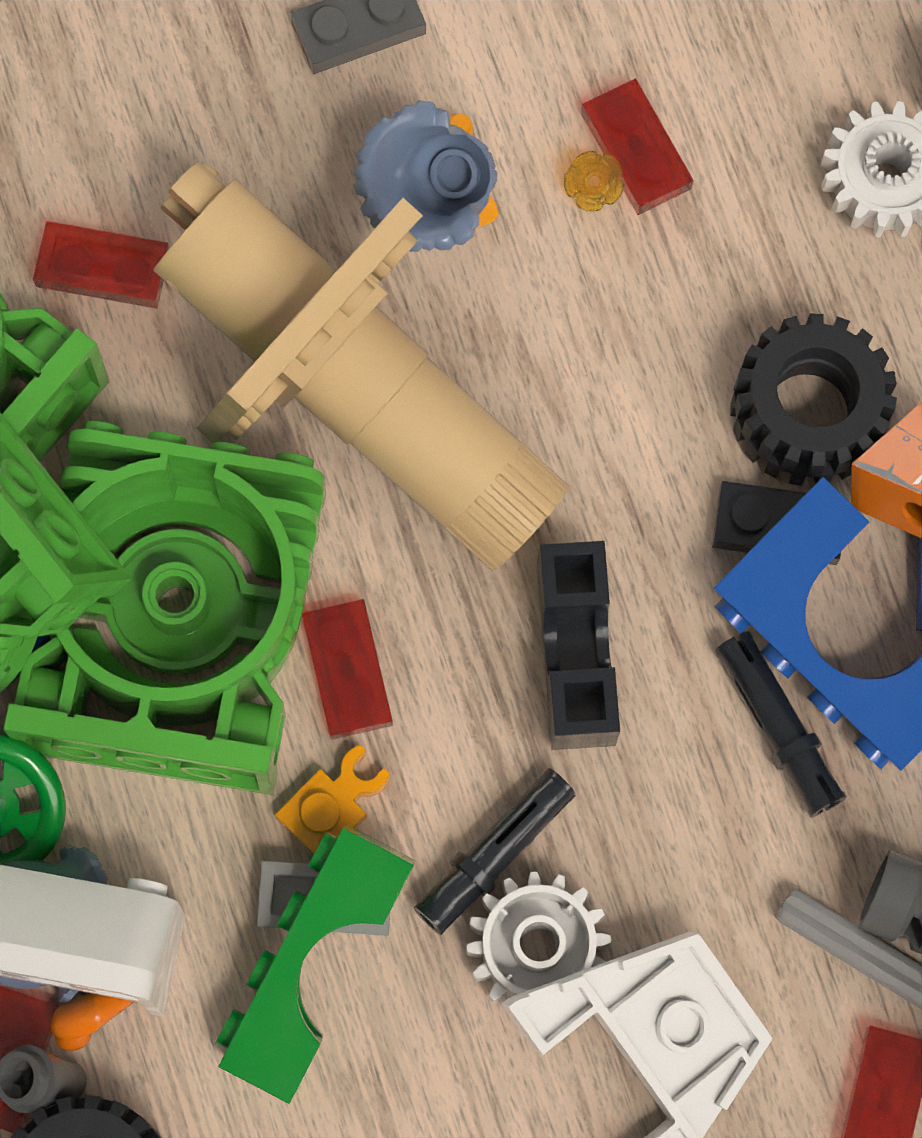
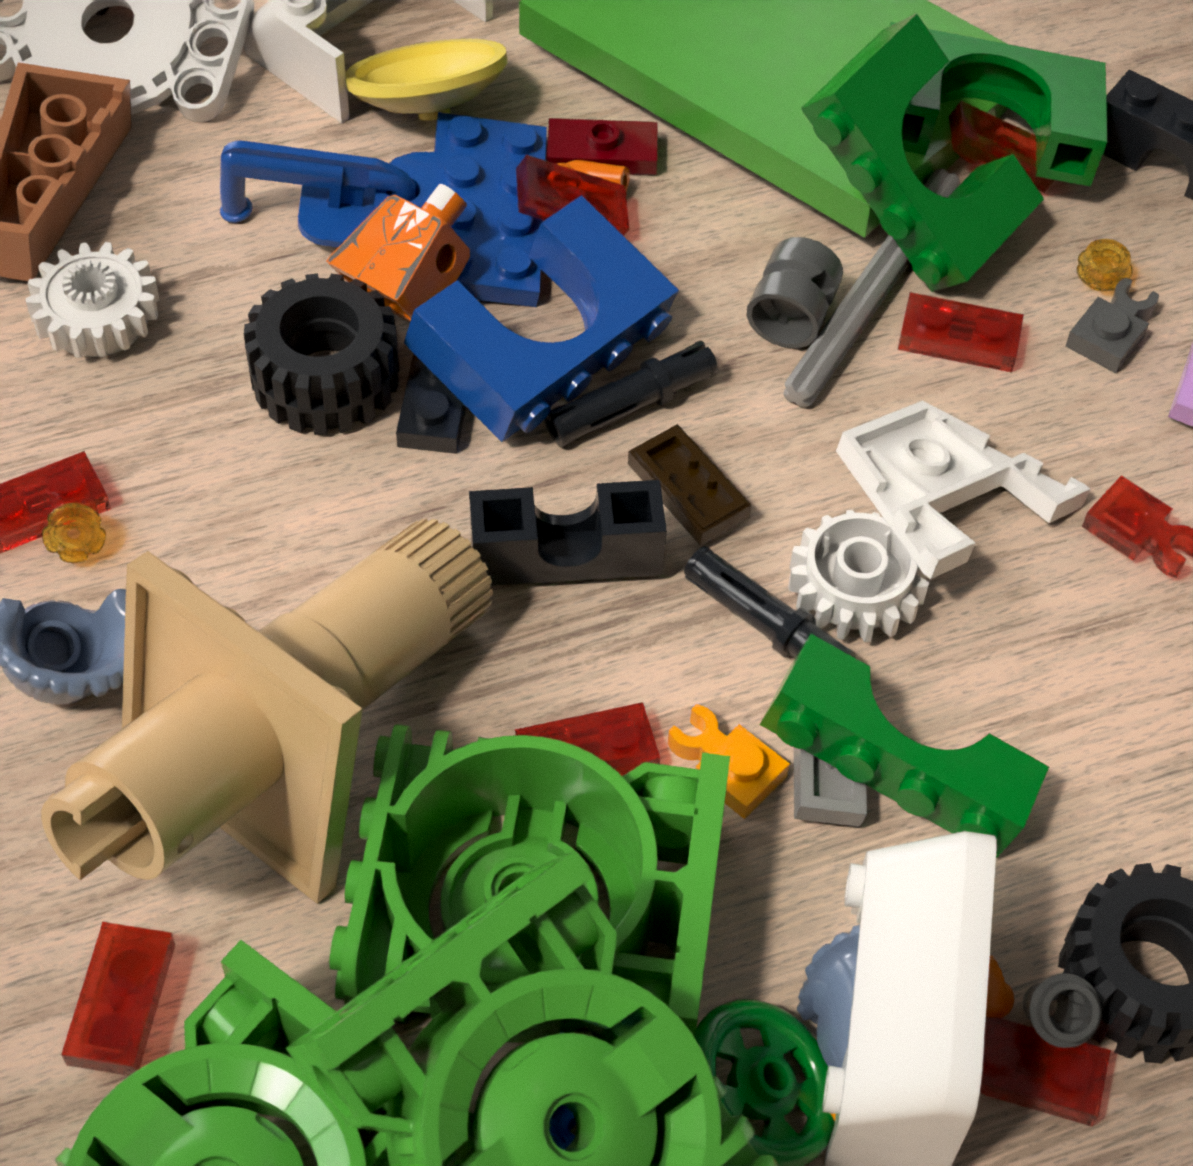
camera: 90 degrees left, 20 degrees down
(659, 779) = (690, 484): none -> dark brown plate

